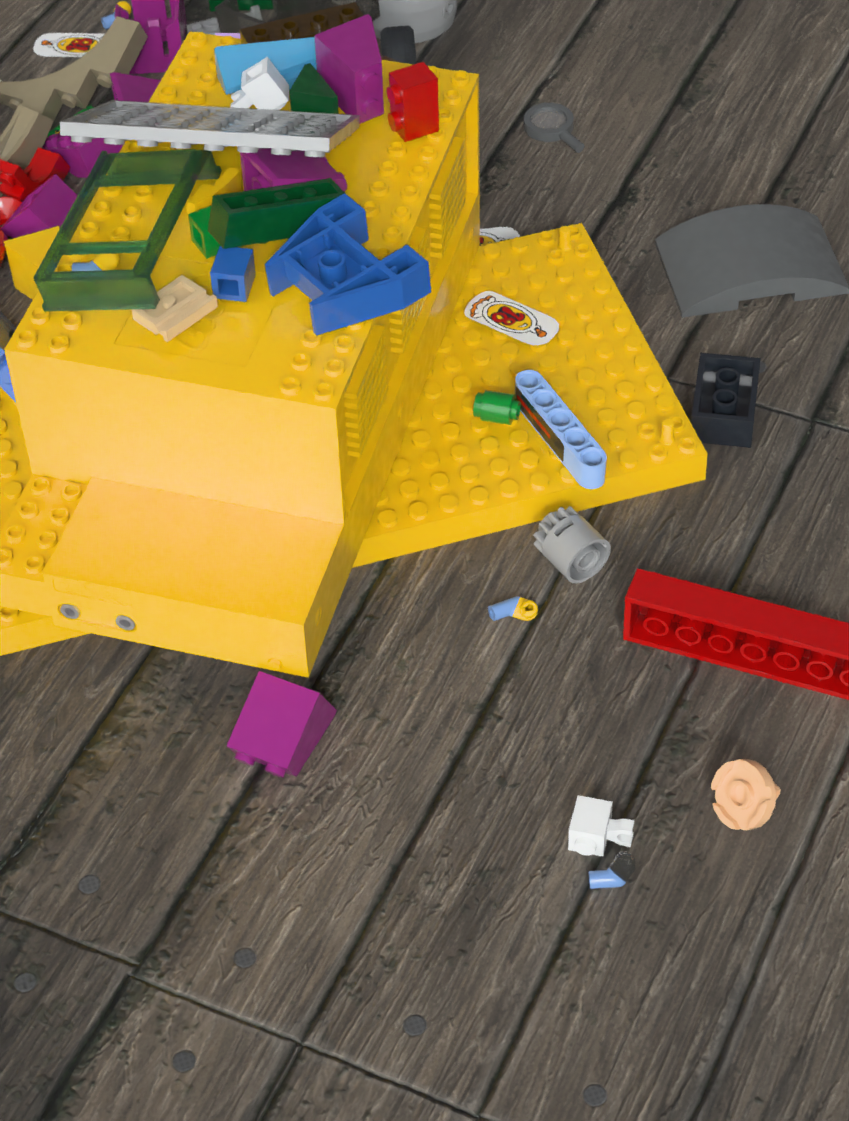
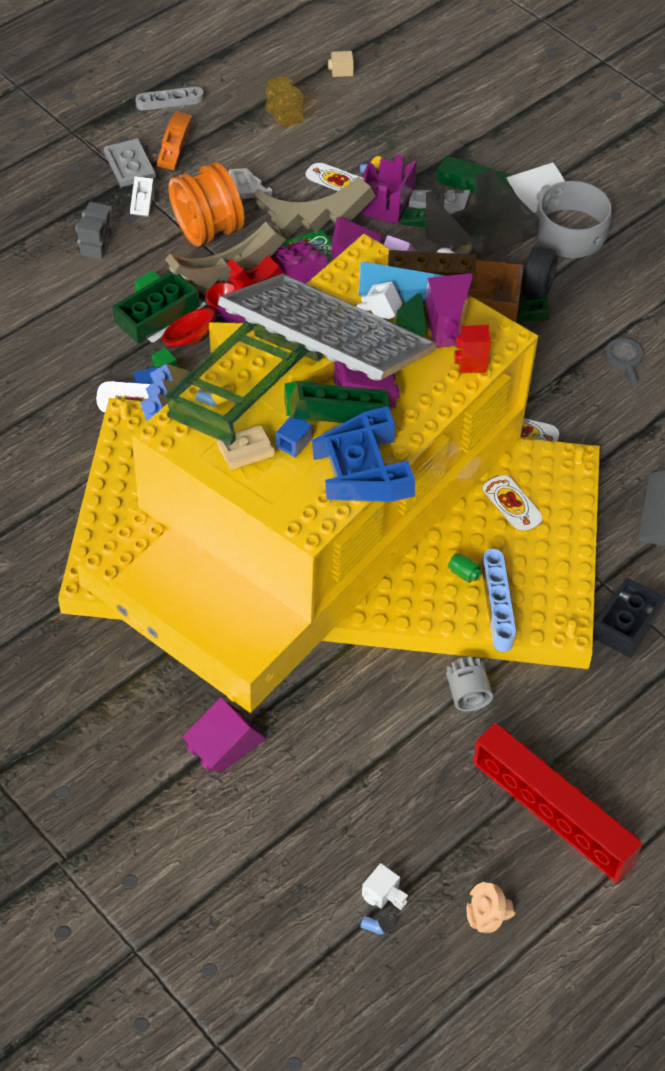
camera: 20 degrees right, 5 degrees up
(514, 607) = (413, 712): arm -> none

